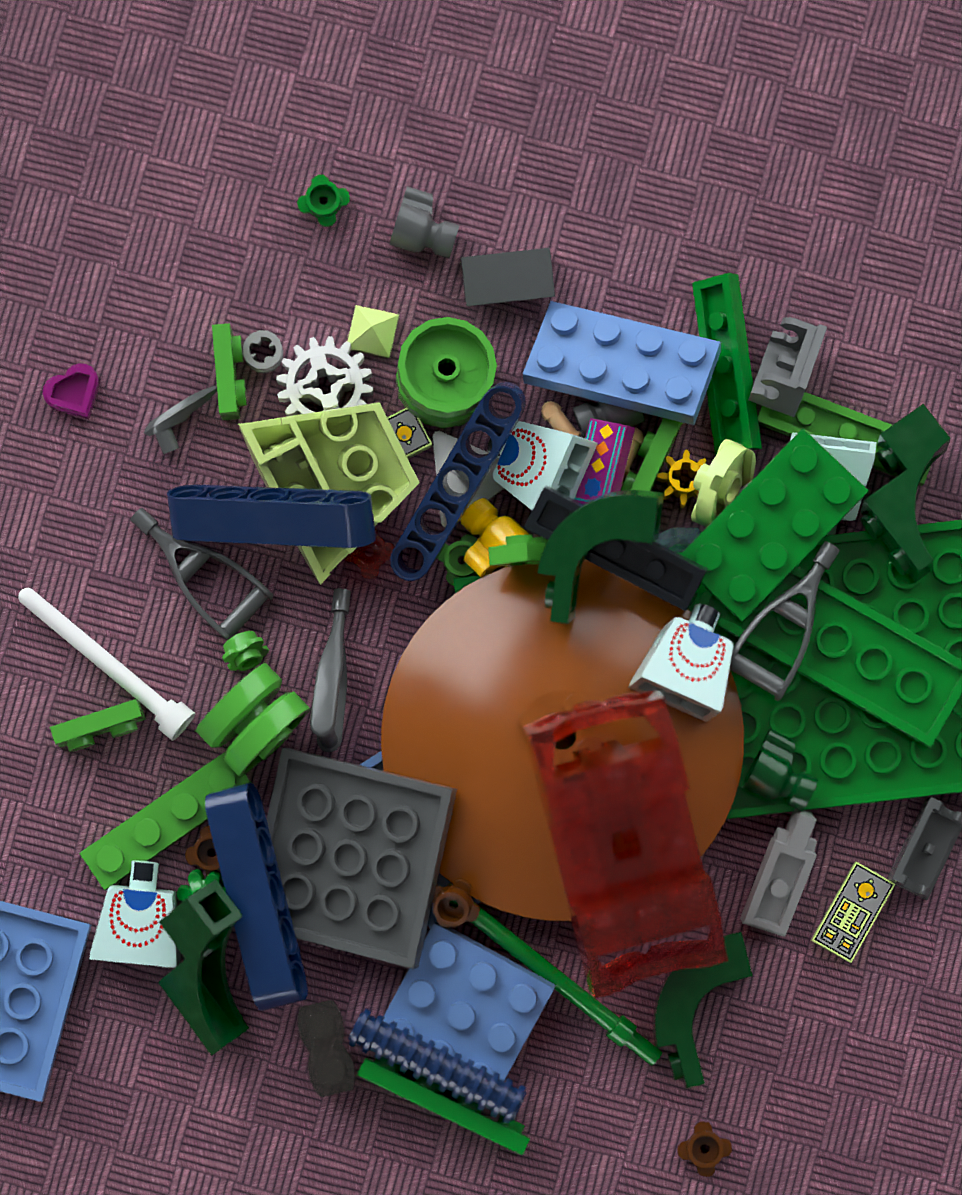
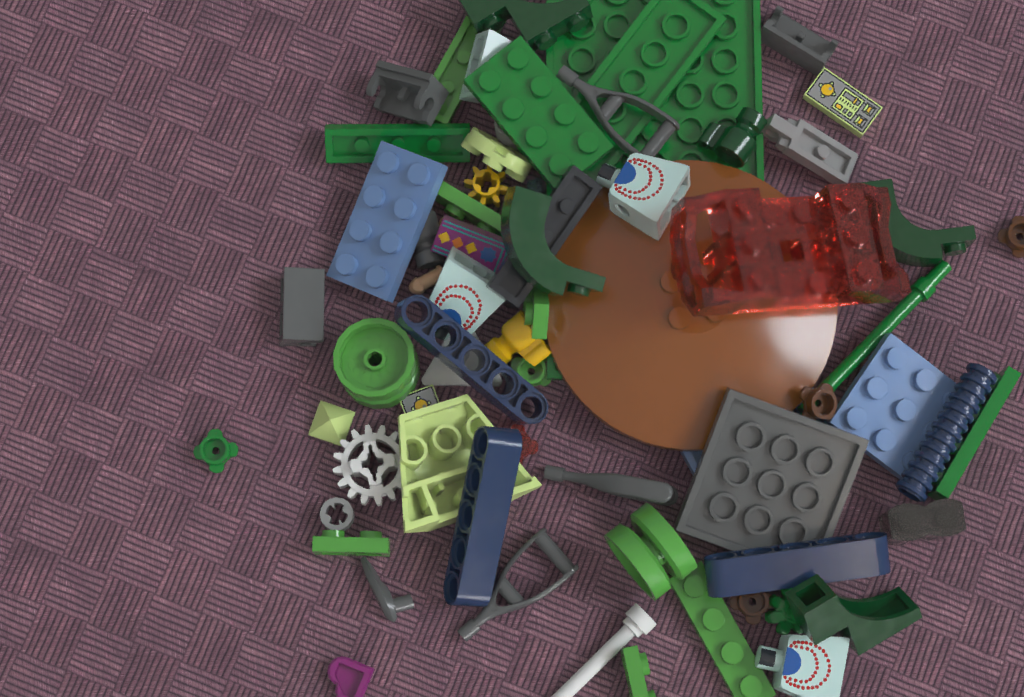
camera: 85 degrees left, 5 degrees down
(244, 651) = (588, 556): bright green plate -> none
(418, 230) = (251, 376): dark grey piece -> none

